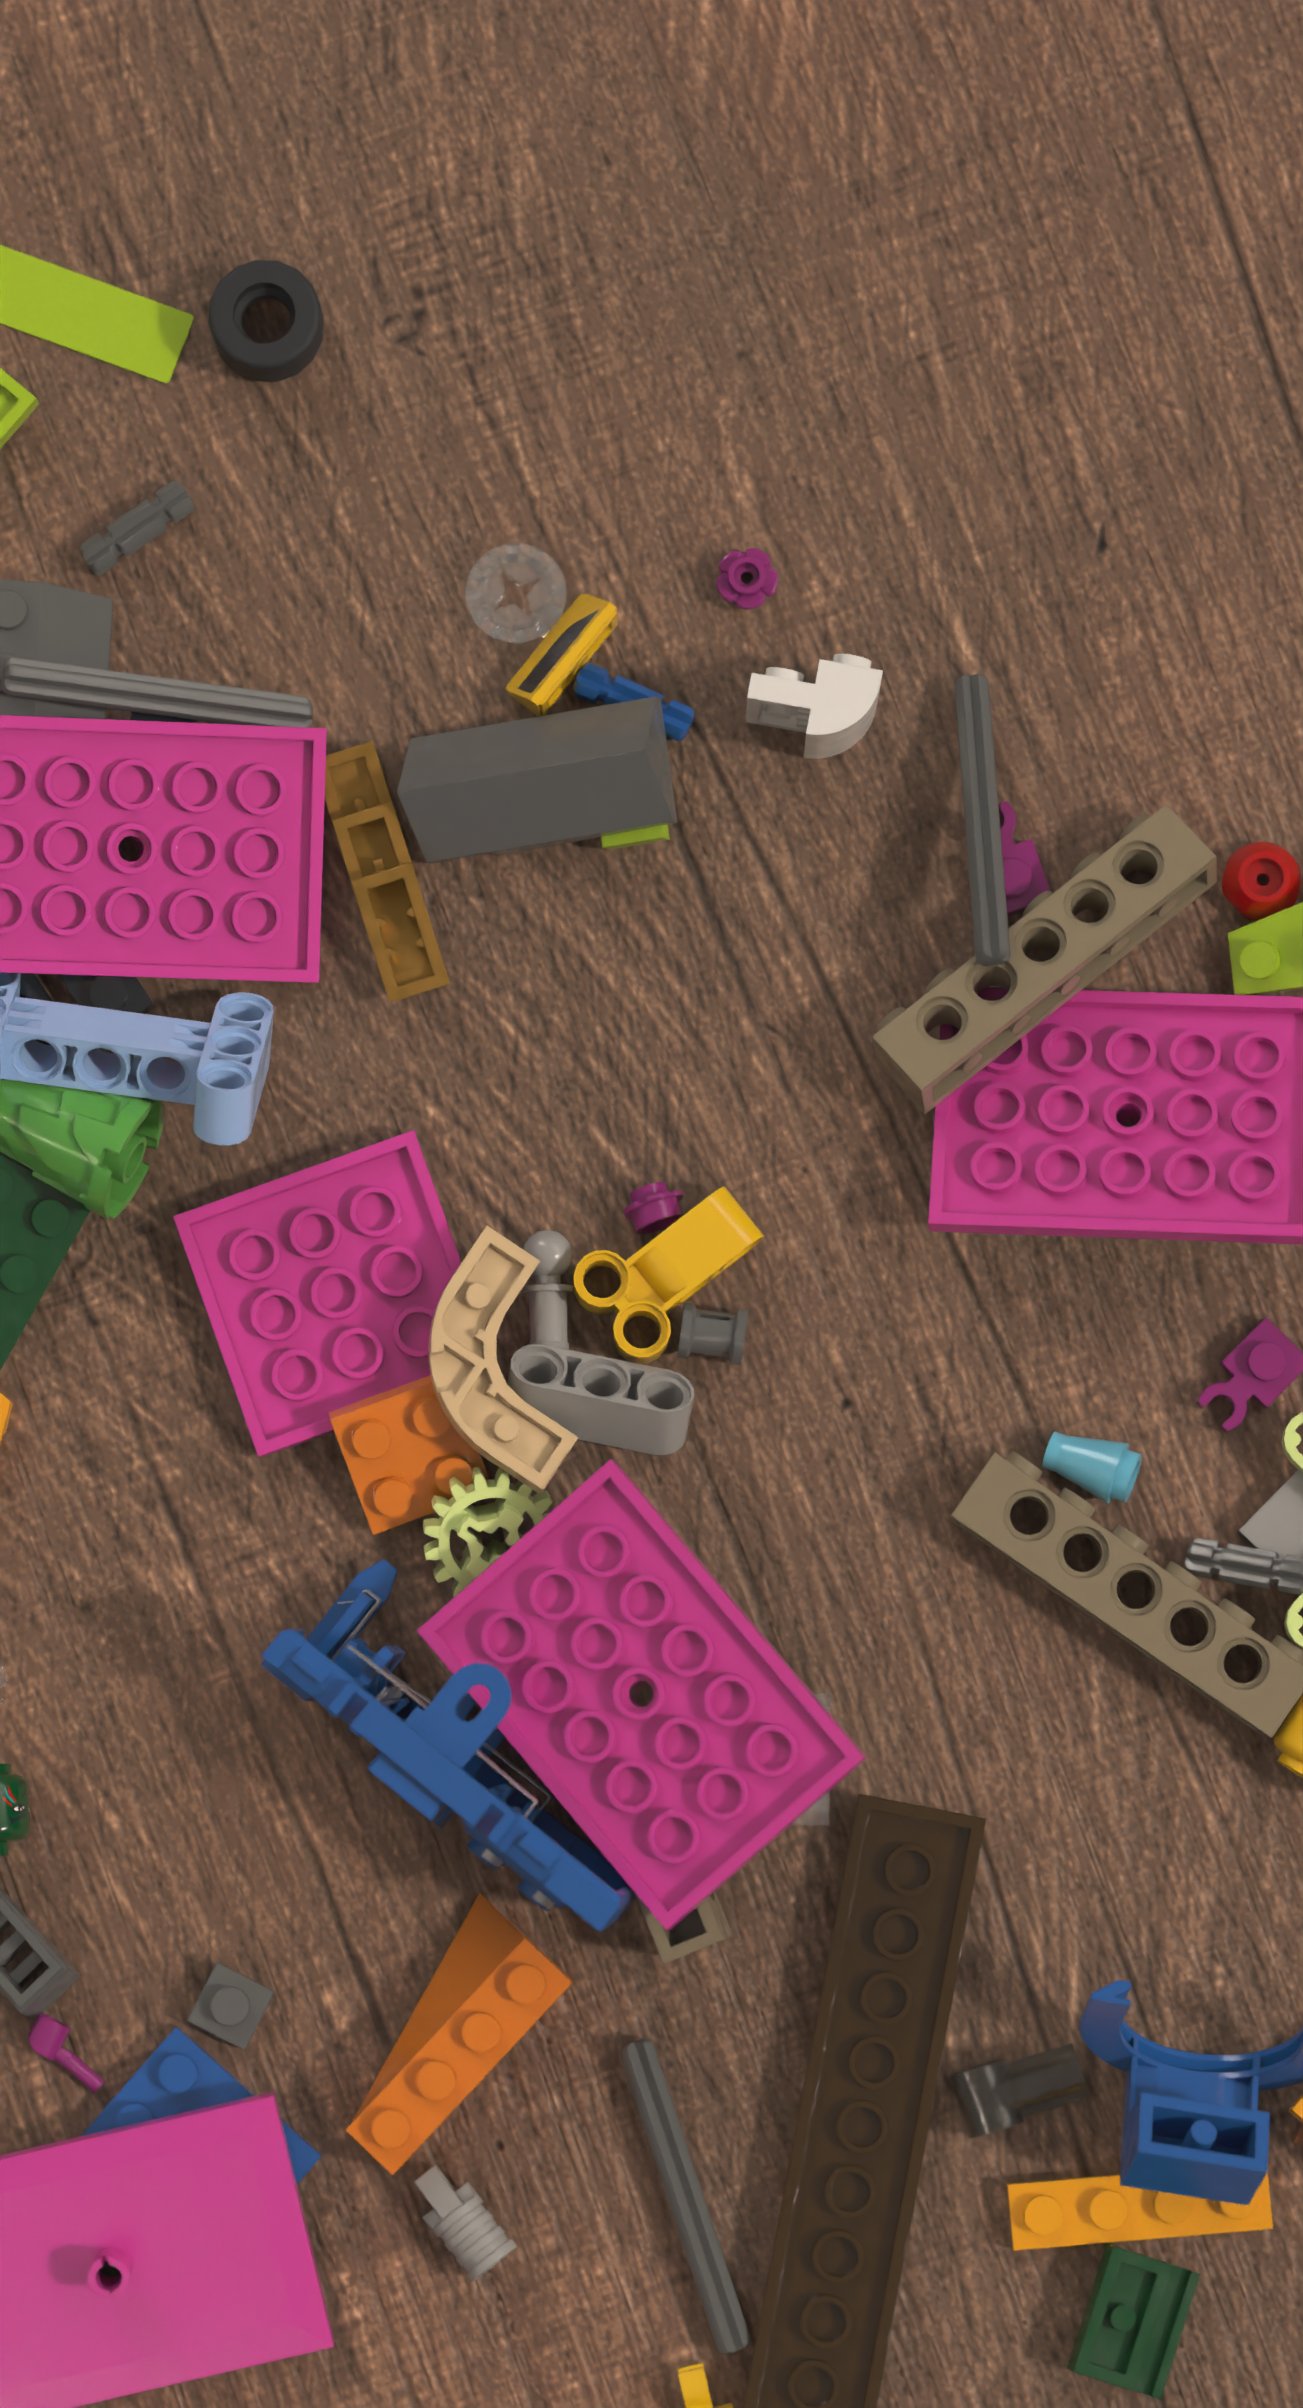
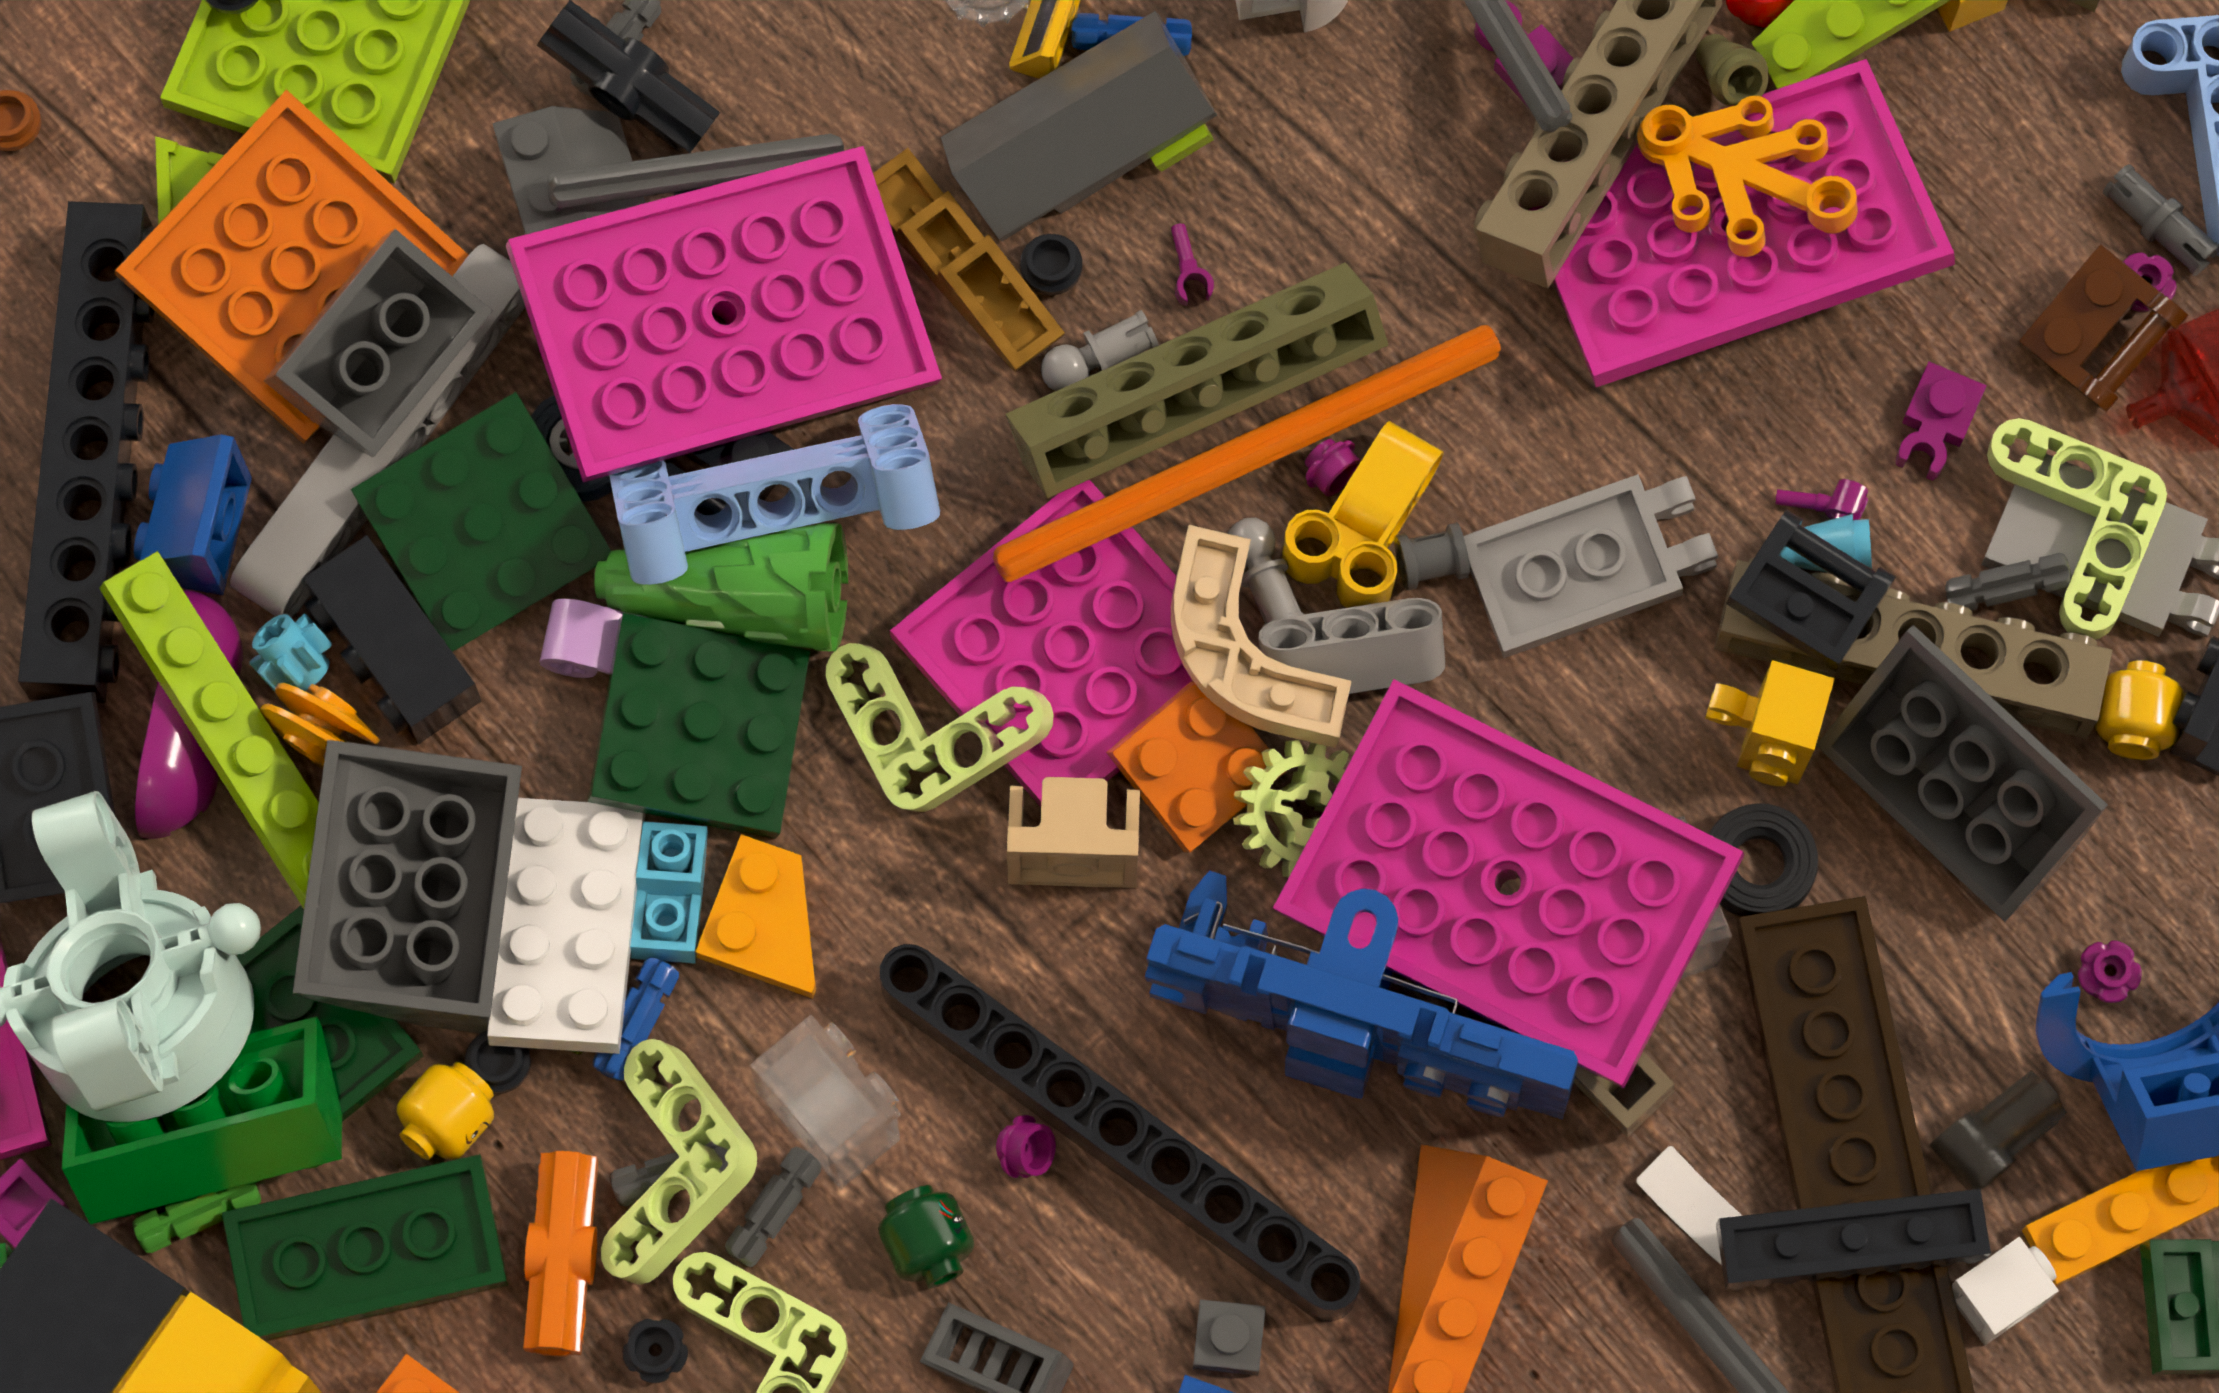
camera: 25 degrees left, 10 degrees down
(111, 1759) = (1025, 1147): none -> magenta plate
(129, 576) = (628, 78): none -> black piece
(153, 1338) = (913, 746): none -> yellowish green beam
(175, 1756) = (1130, 1161): none -> black beam
(263, 1483) = (1073, 840): none -> tan panel
(442, 1015) = (1104, 349): none -> light grey pin
(466, 906) = (1051, 264): none -> black plate
(555, 1079) = (1197, 379): none -> olive brick
(576, 1168) = (1245, 453): none -> orange axle
(597, 954) = (1188, 265): none -> magenta hand
(712, 2047) = (1686, 1198): none -> white sticker
(834, 2143) = (1853, 1239): none -> black gear
(853, 1391) = (1583, 562): none -> light grey tile
(943, 1738) = (1795, 844): none -> black tyre
(962, 2238) = (2004, 1289): none -> white brick
(969, 1626) = (1779, 721): none -> yellow brick
(1031, 1524) = (1800, 605): none -> black plate
(1109, 1750) = (1961, 775): none -> dark grey slope
(1129, 1426) = (1846, 499): none -> magenta hand
(1154, 1064) = (1743, 165): none -> light orange plant
(1171, 1970) = (2094, 979): none -> magenta plate
(1192, 959) = (1732, 69): none -> olive cone

